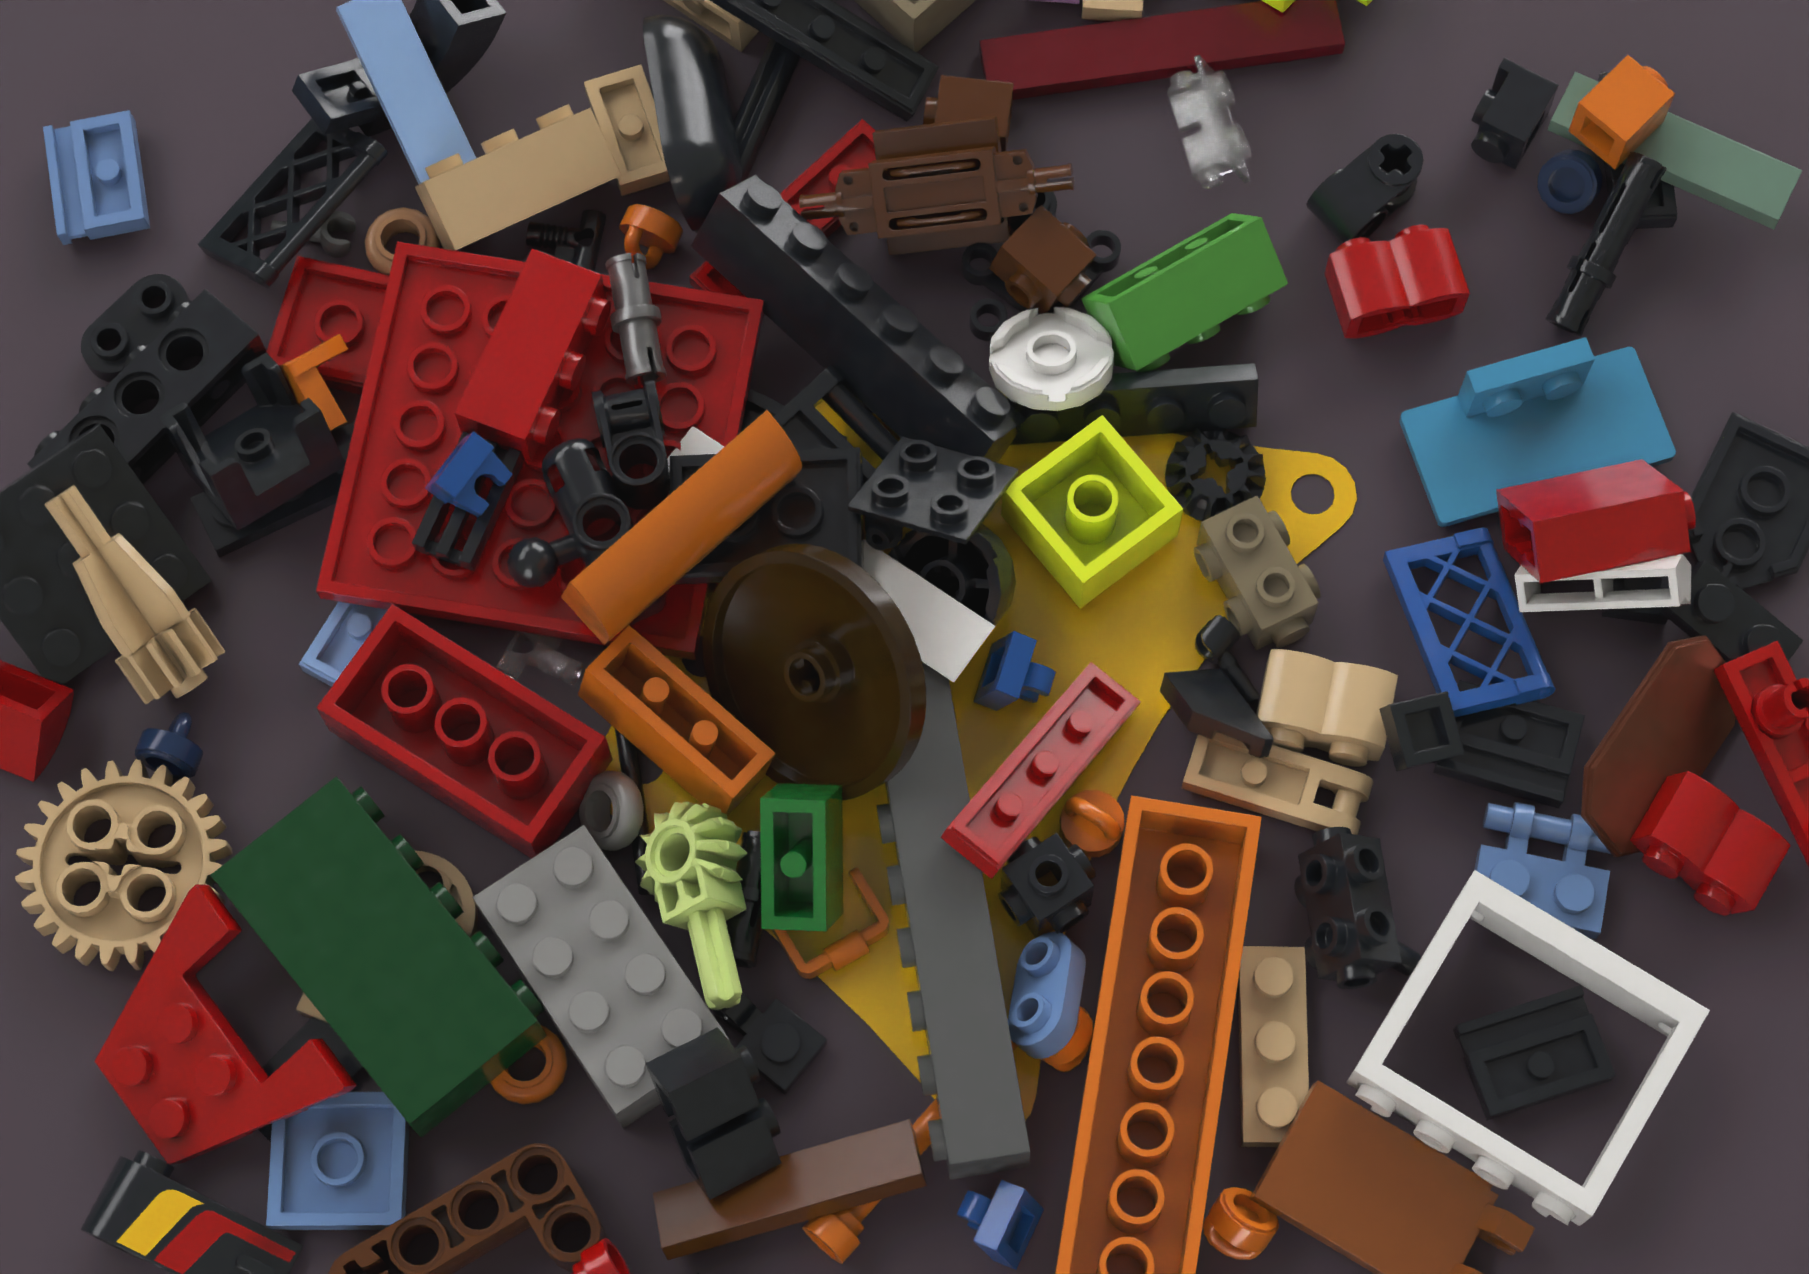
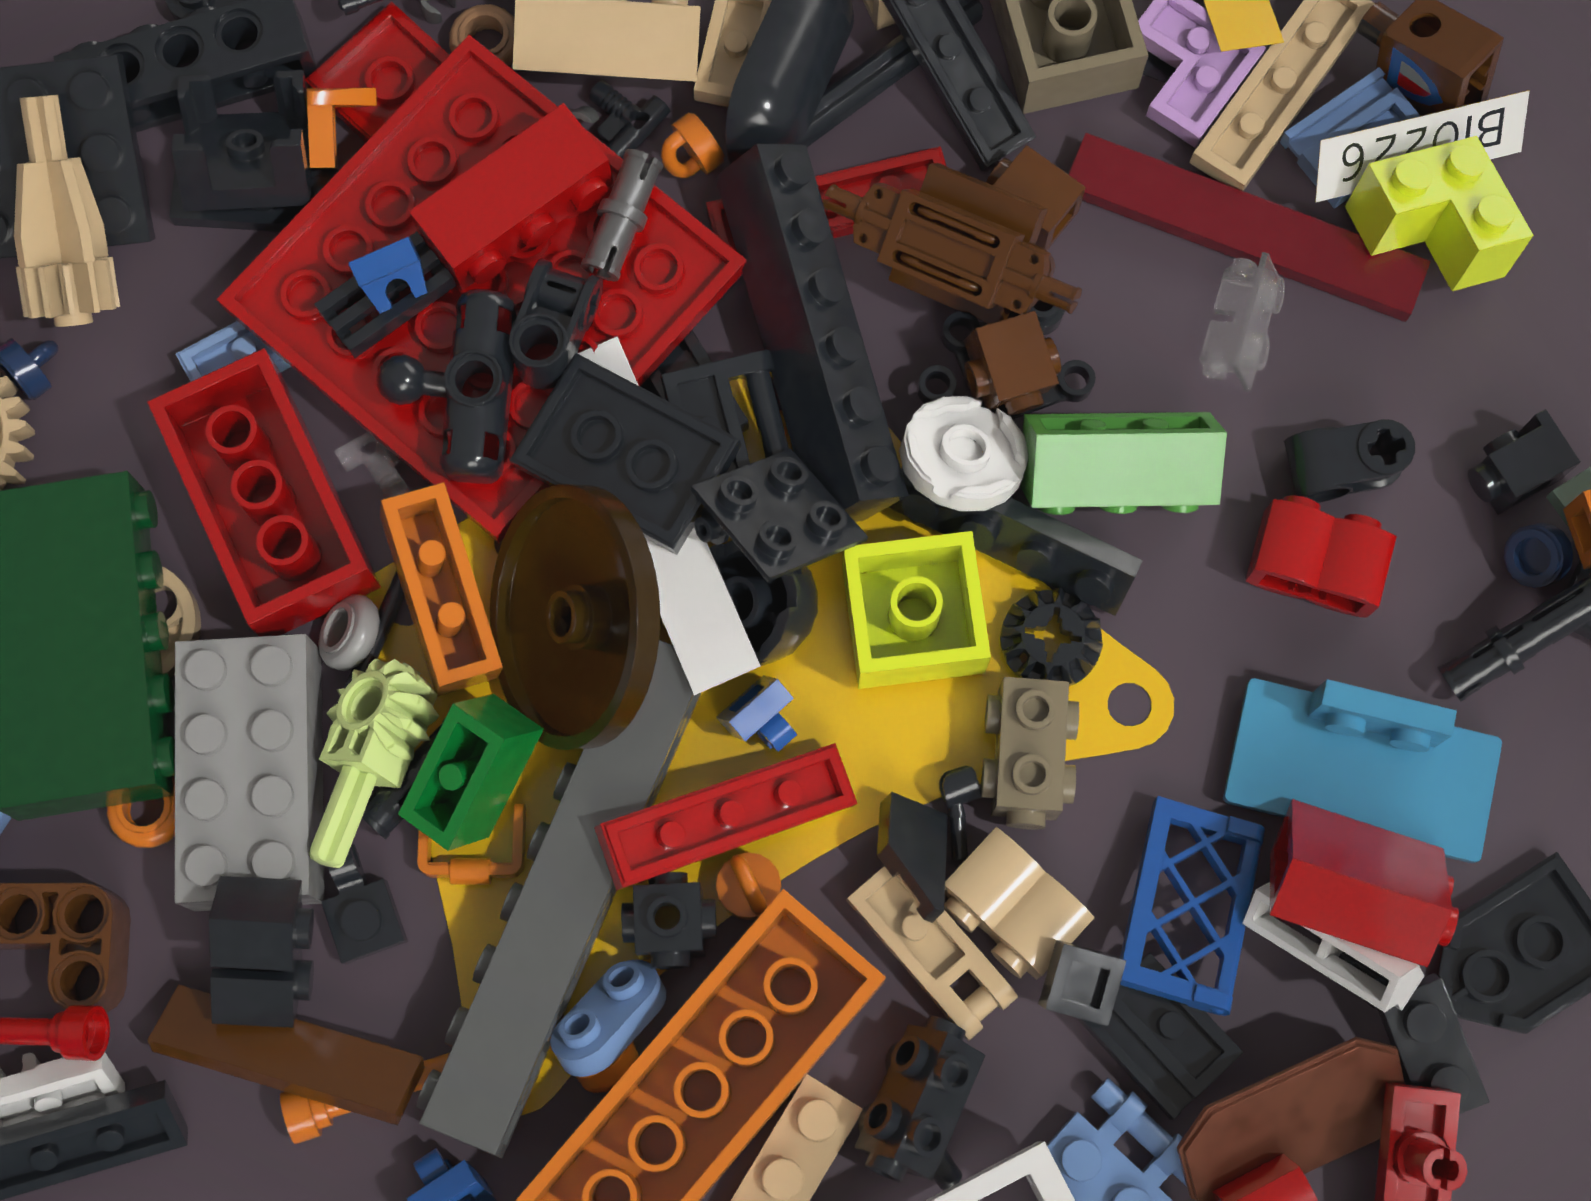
camera: 30 degrees right, 5 degrees up
(684, 528) = (528, 426): orange brick -> none

